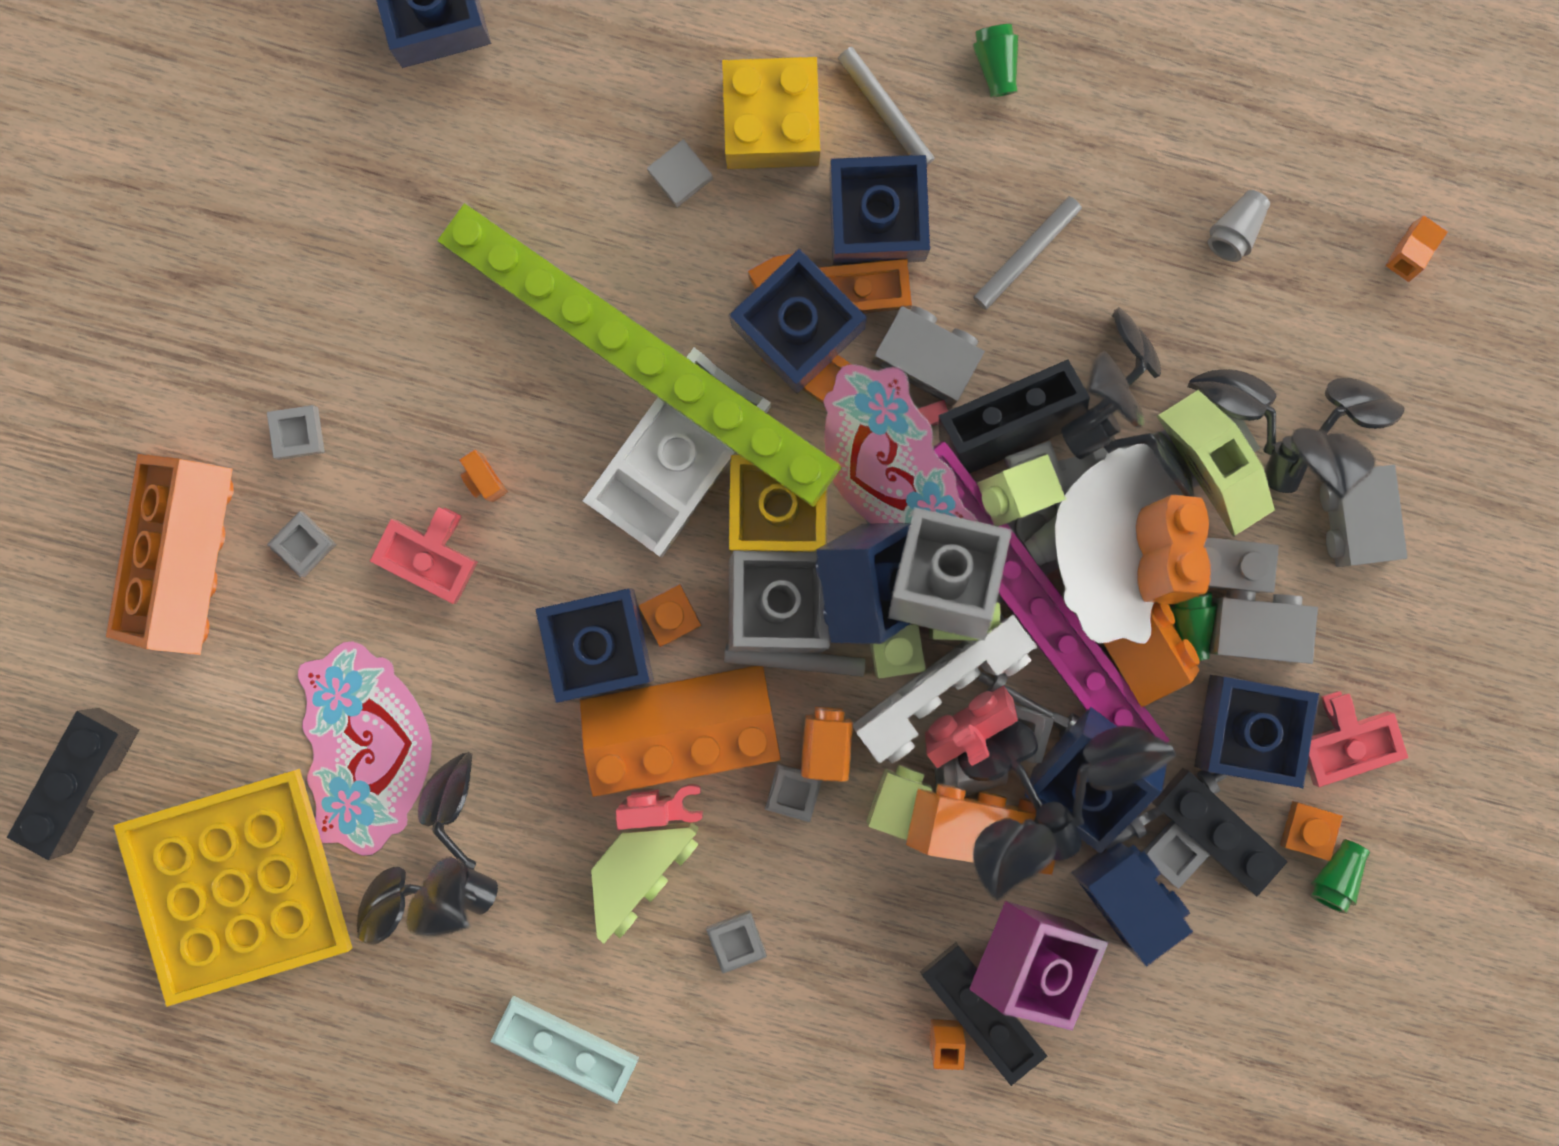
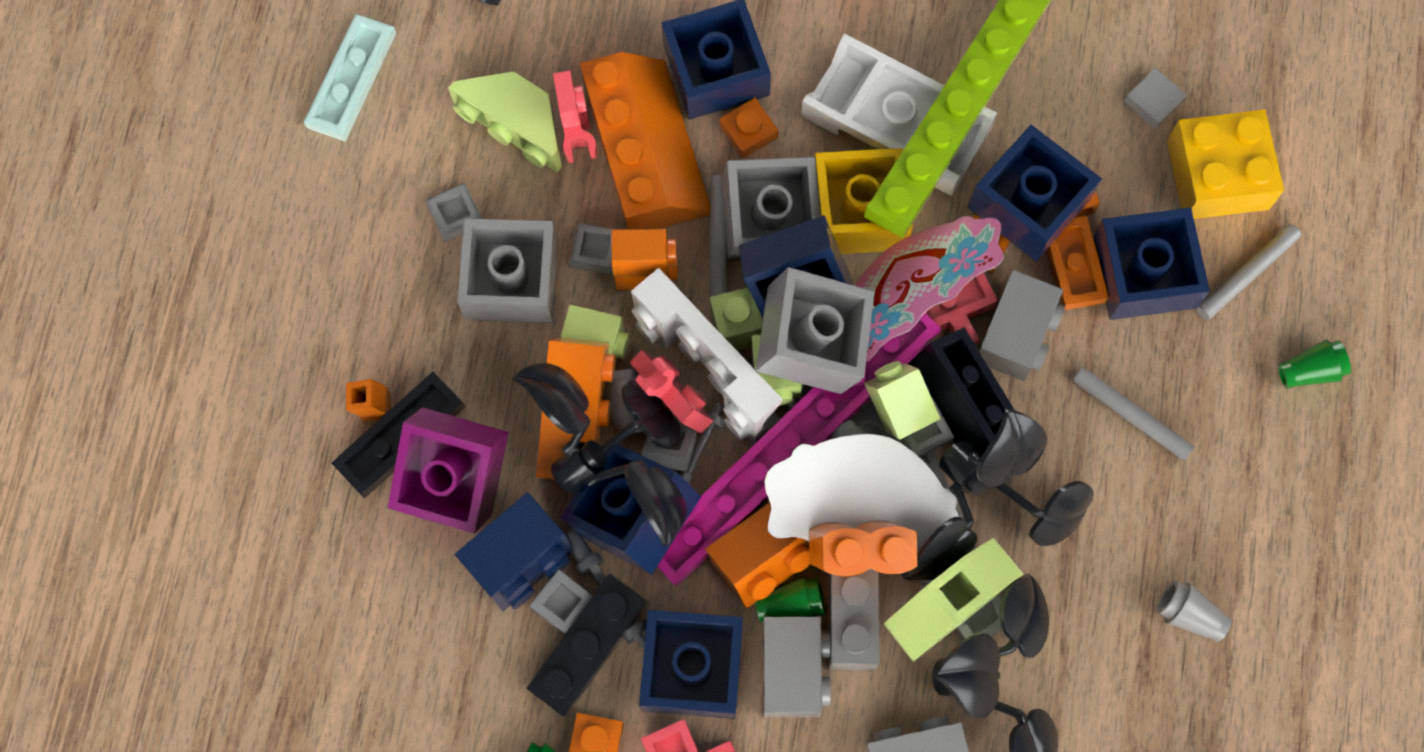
camera: 90 degrees right, 15 degrees down
(821, 890) = (508, 270): none -> light grey brick

